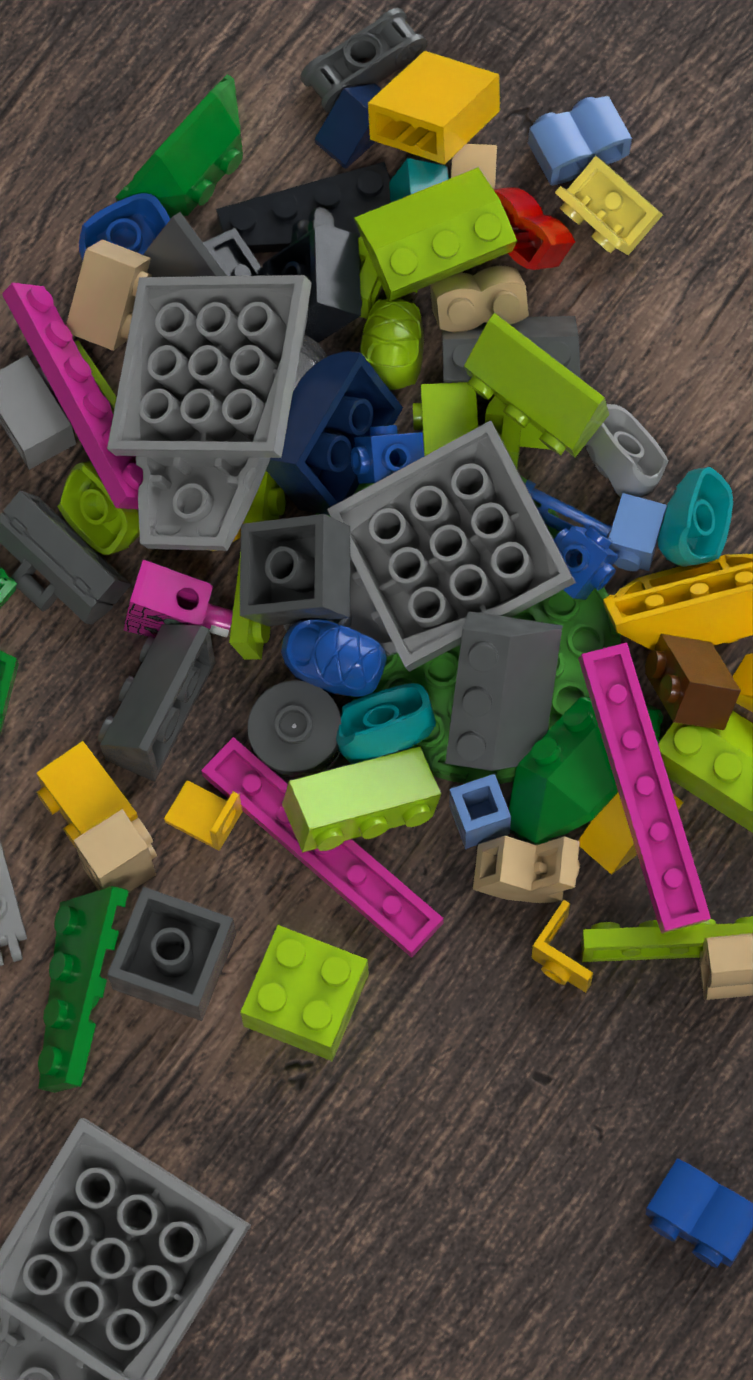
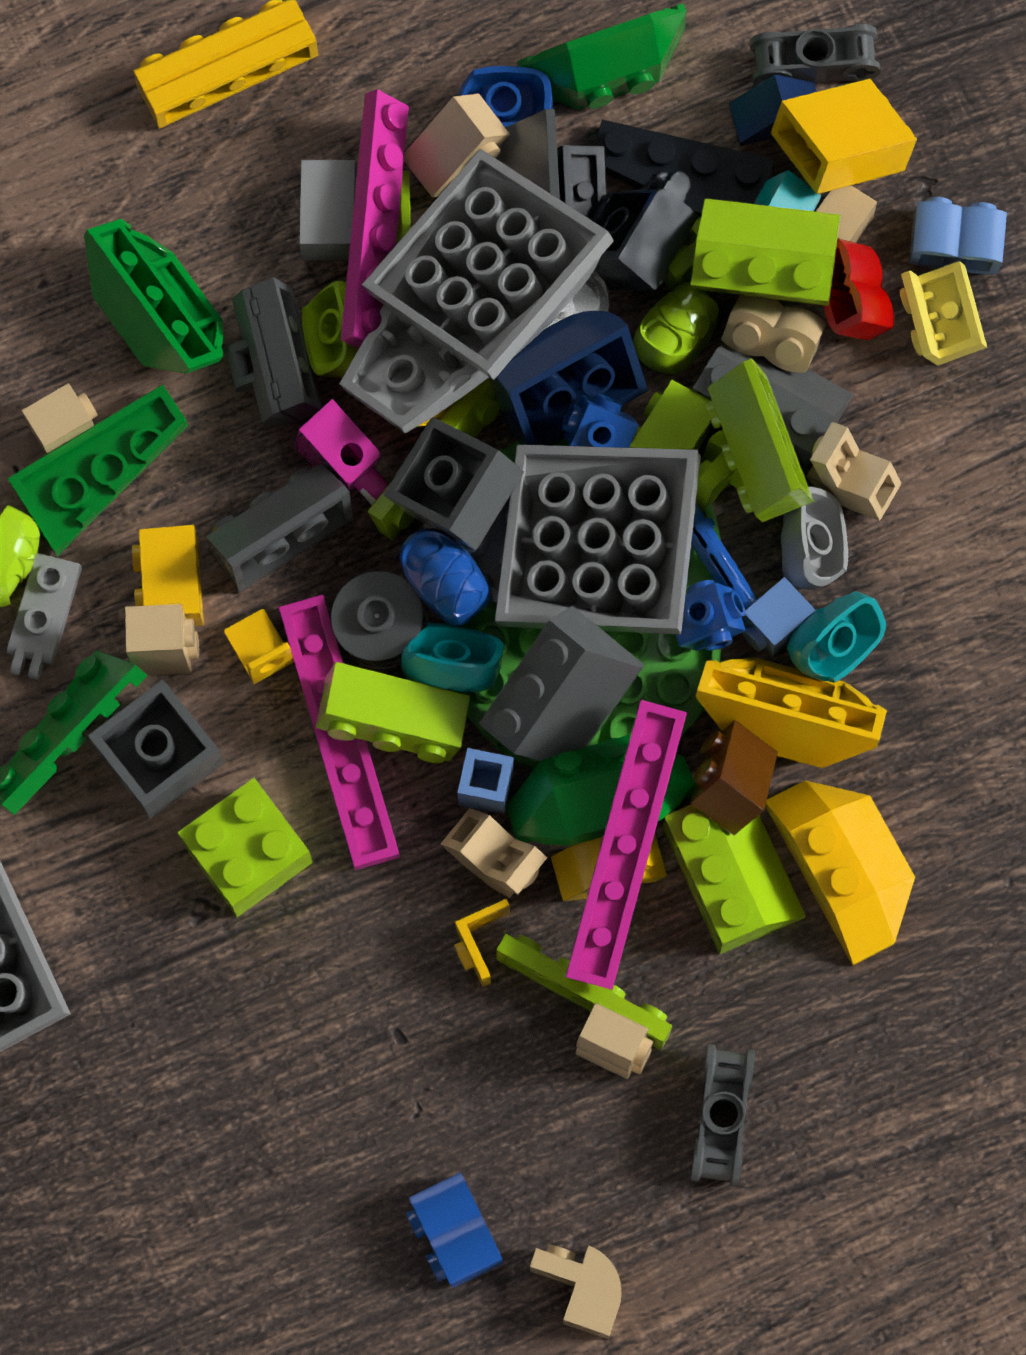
camera: 30 degrees right, 5 degrees up
(624, 379) = (853, 476): none -> tan brick

